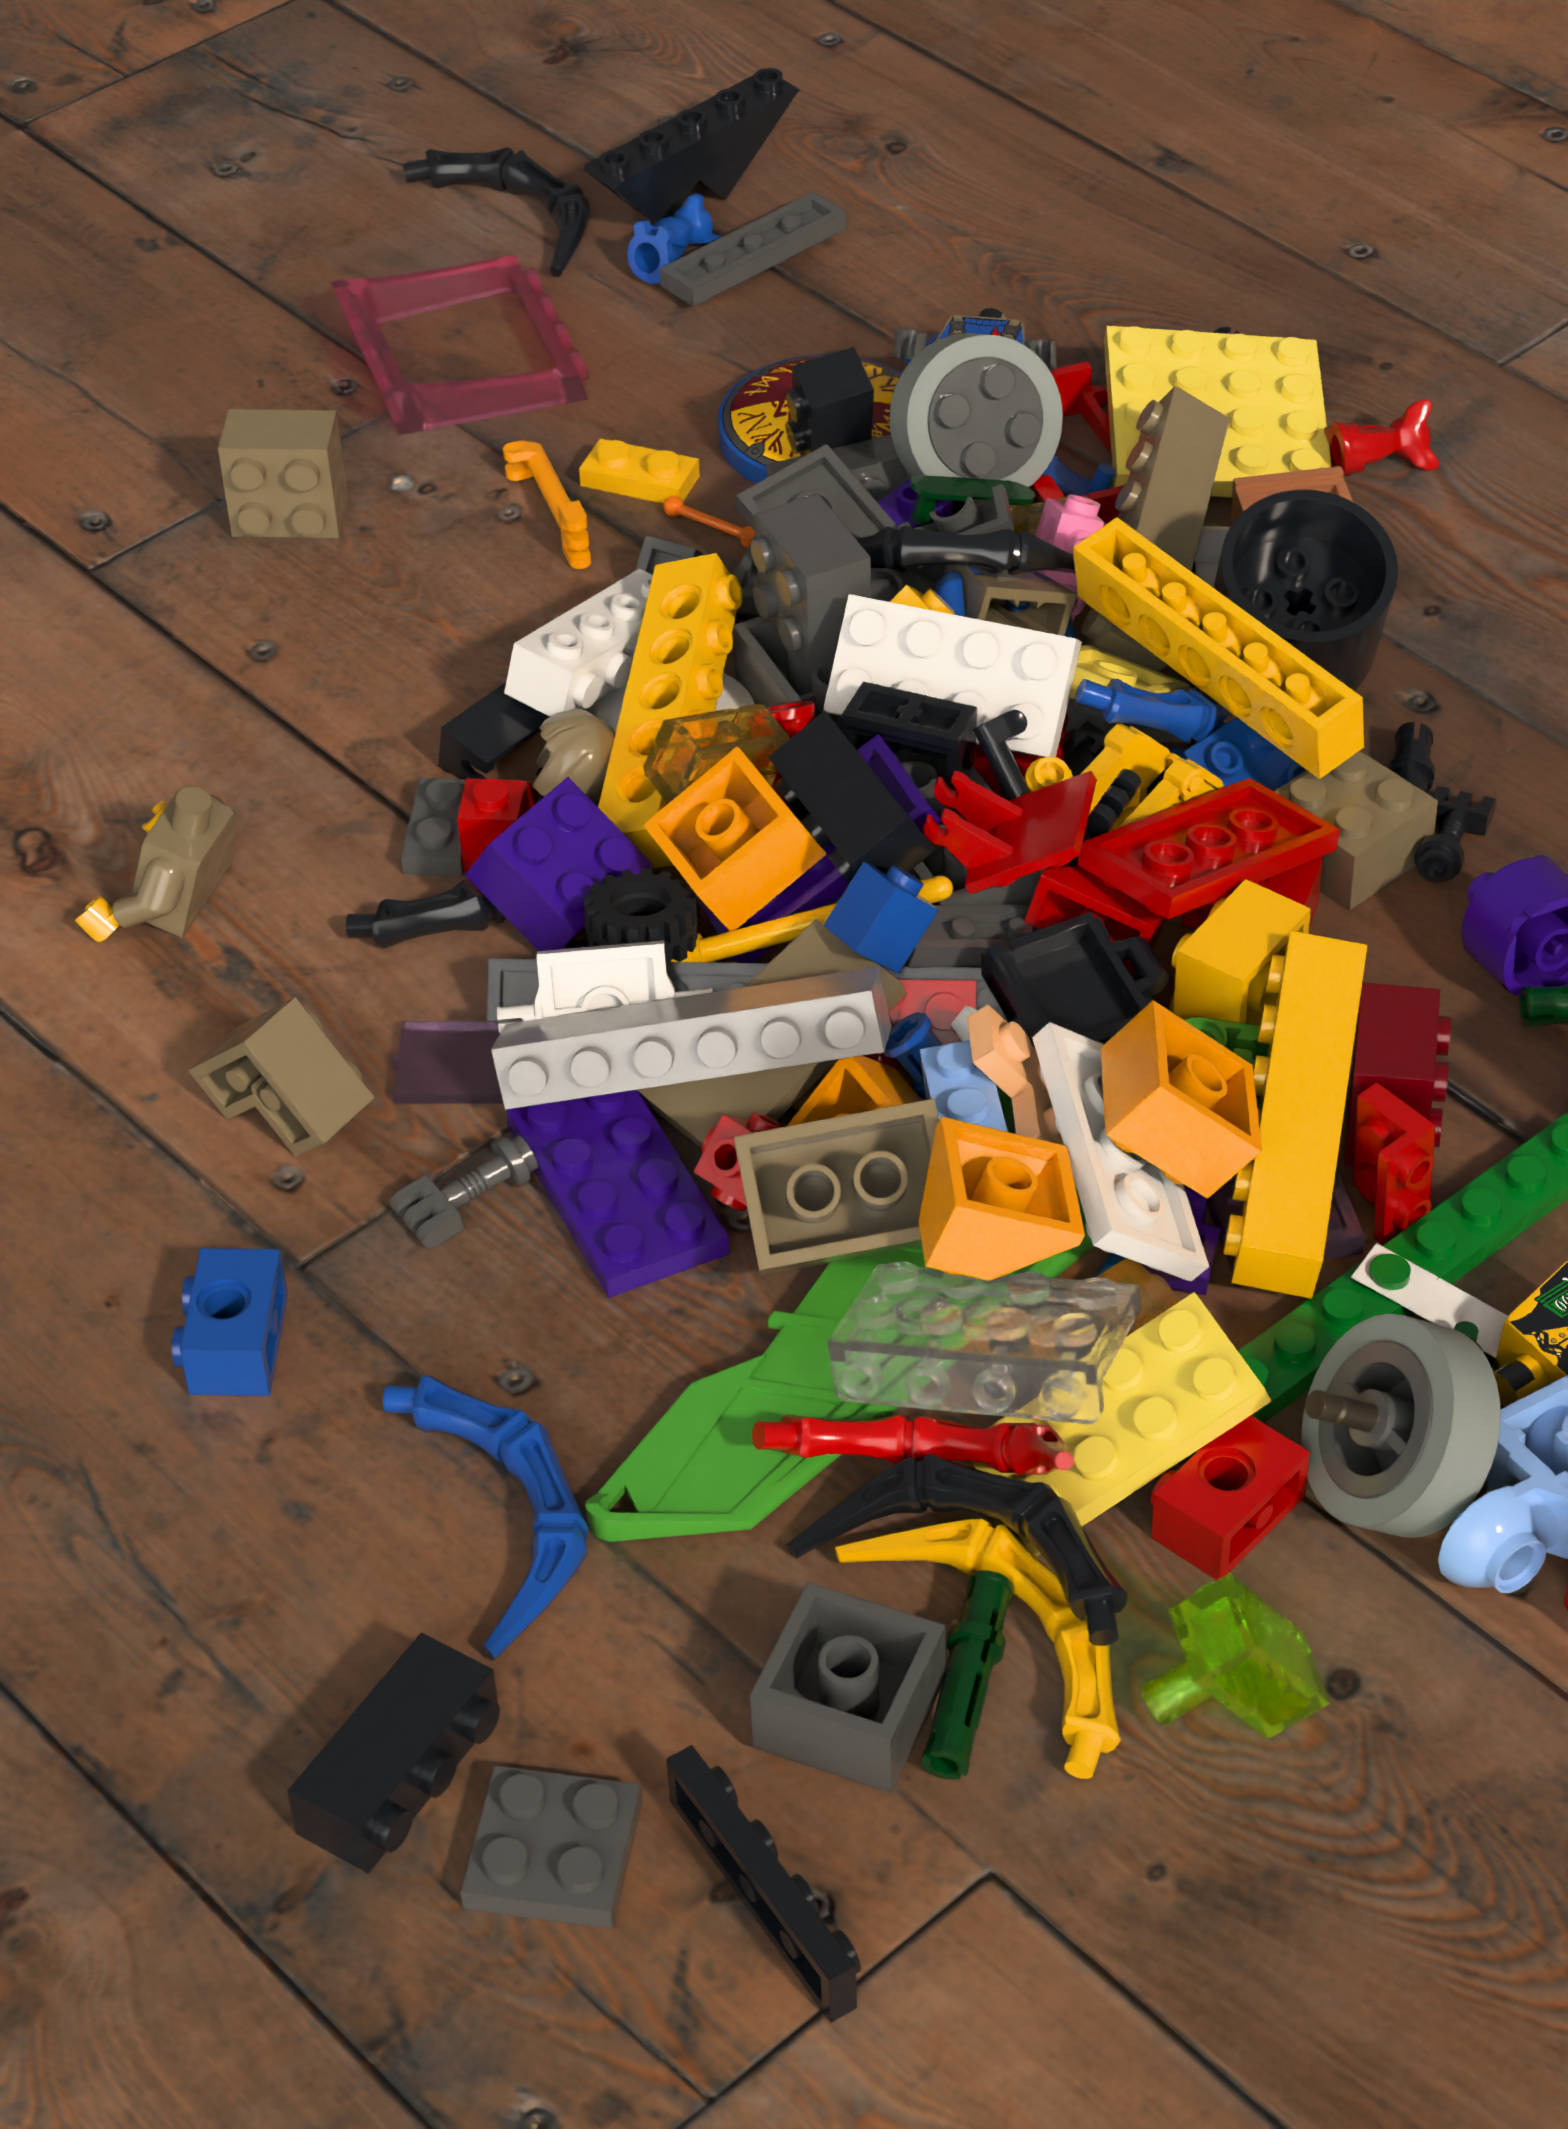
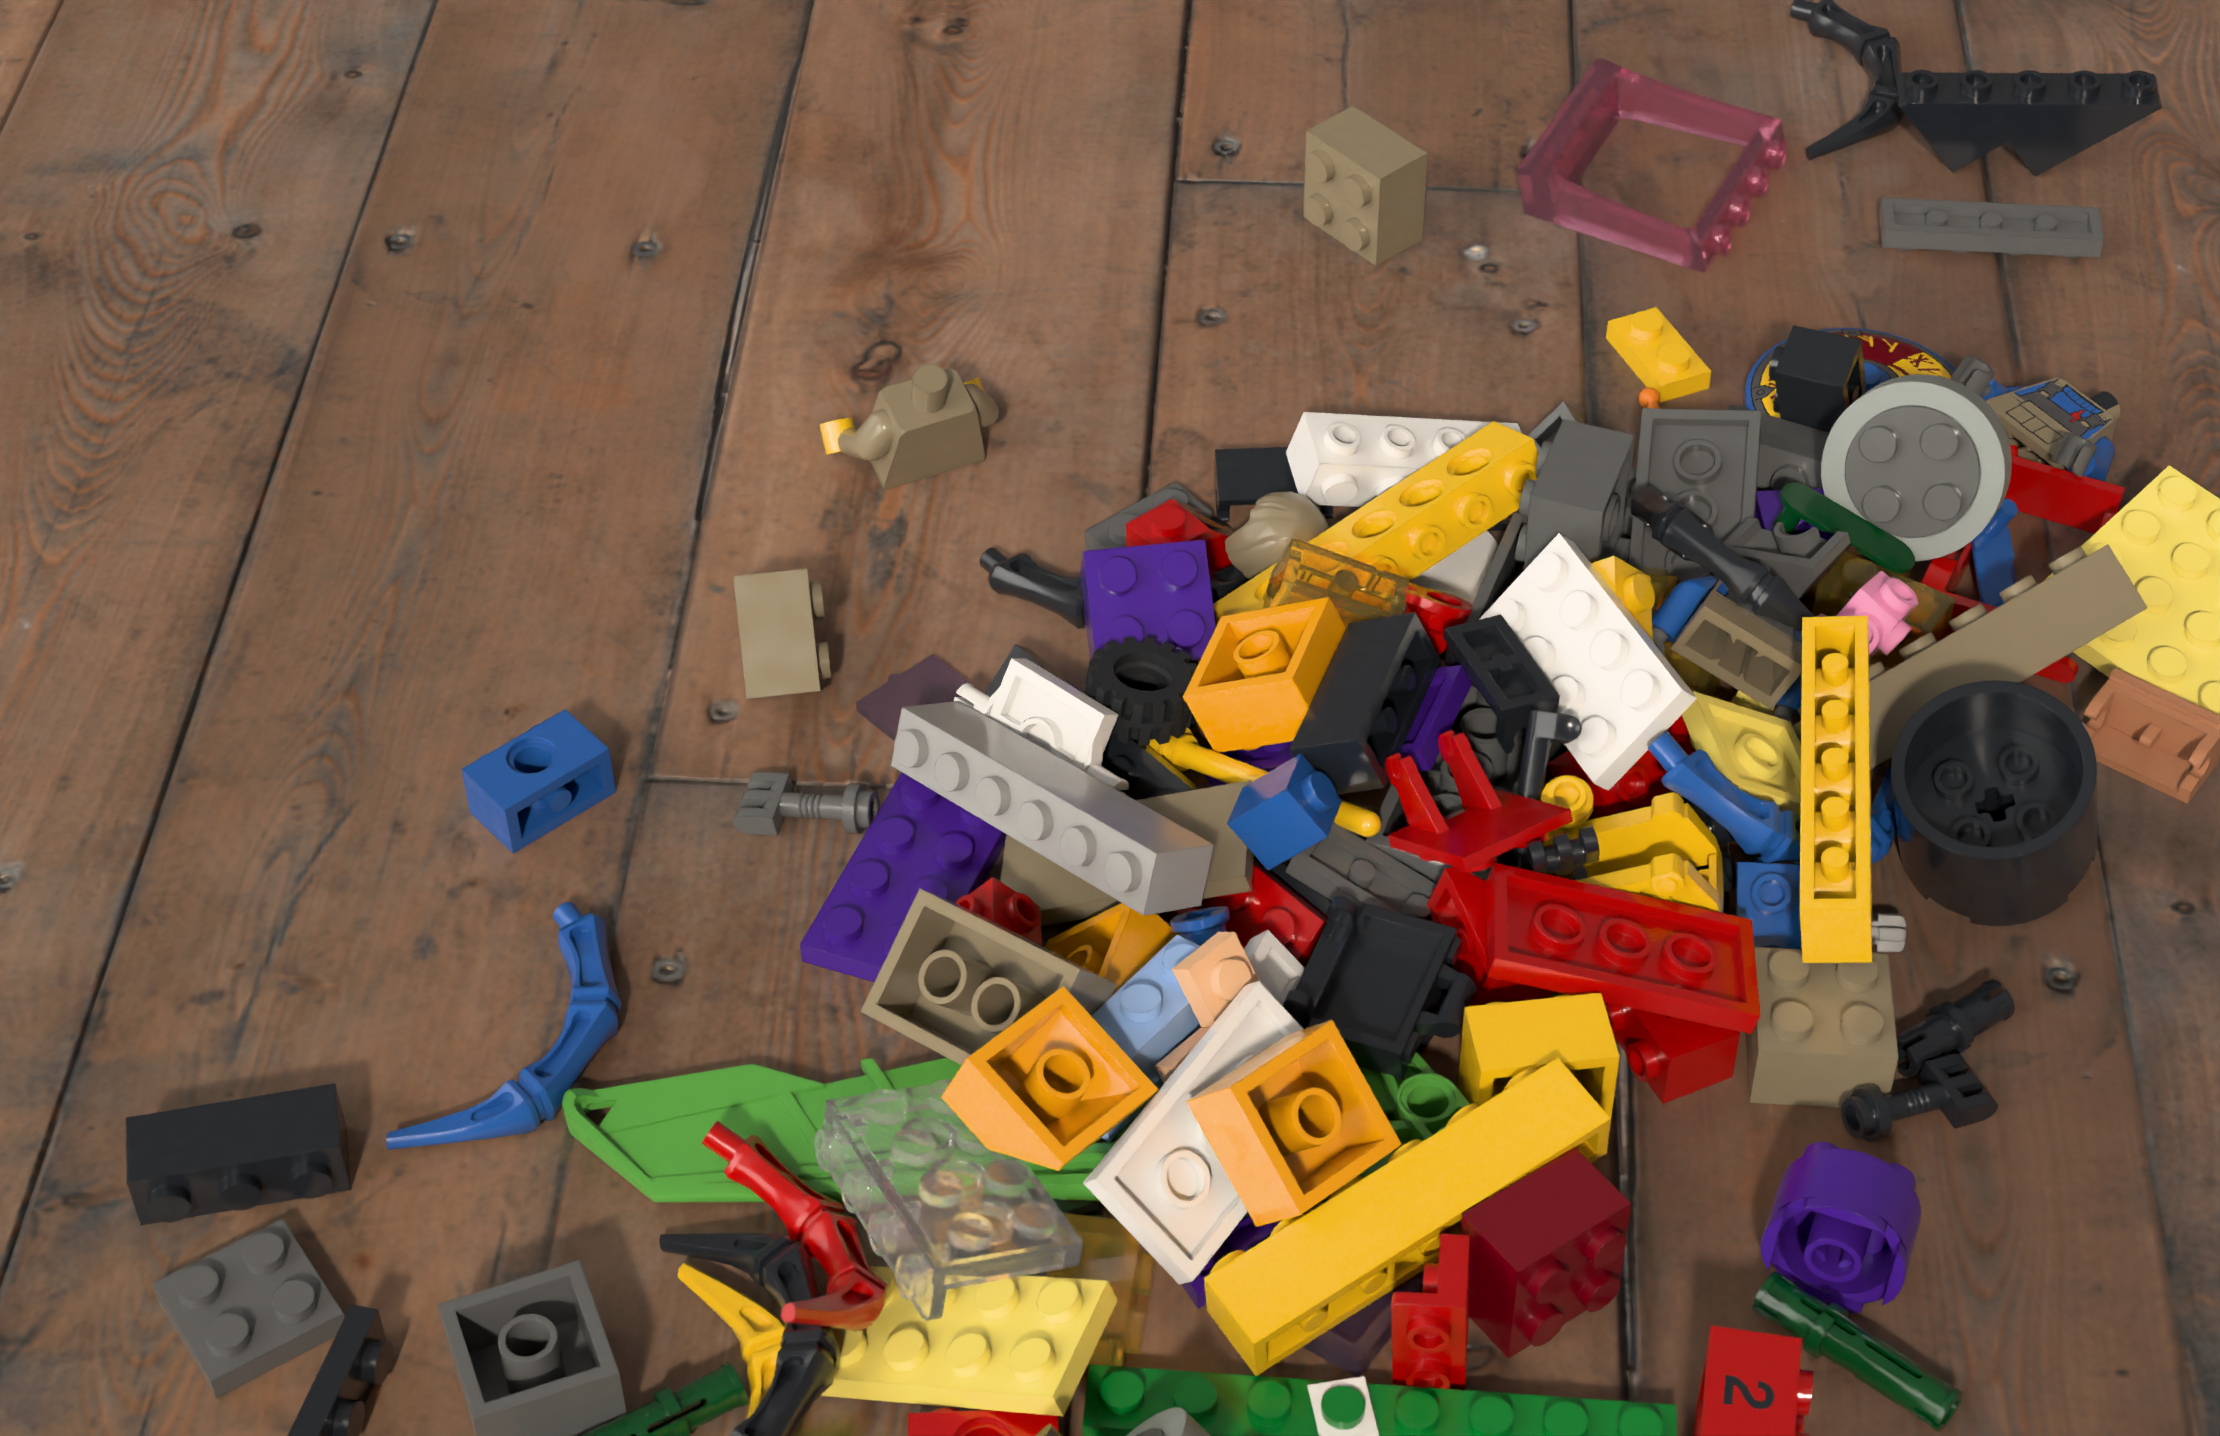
camera: 45 degrees right, 0 degrees up
(529, 460) = (1579, 294): light orange hinge -> none
(668, 238) = (1929, 177): blue animal -> none

